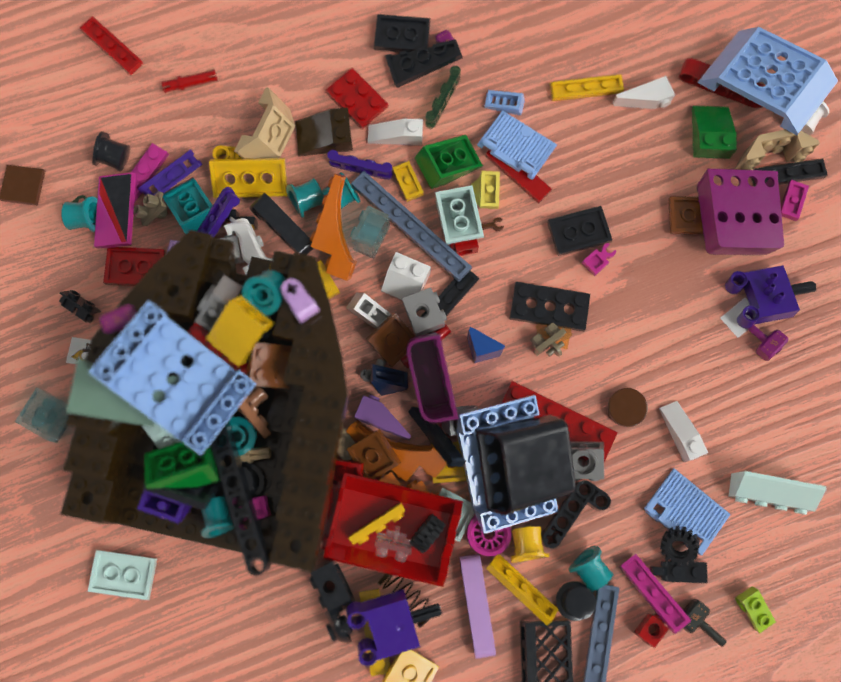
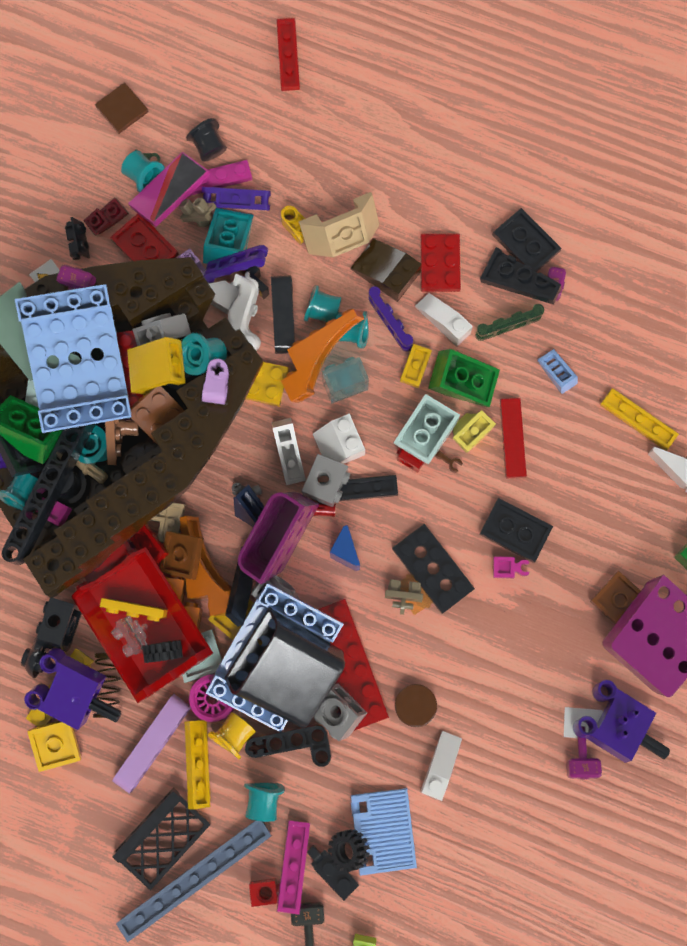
camera: 45 degrees right, 0 degrees up
(85, 274) = (105, 218): none -> dark red slope
(189, 81) = (321, 134): red pin -> none
(256, 167) = (305, 251): yellow plate -> none
(377, 415) = (216, 529): medium lavender slope -> none
(391, 339) = (281, 476): dark orange plate -> none
(411, 226) = (383, 404): sand blue plate -> none
(517, 144) = (533, 415): light blue window -> none
(575, 601) = (228, 813): black piece -> none
(775, 491) = (467, 884): light aqua slope -> none

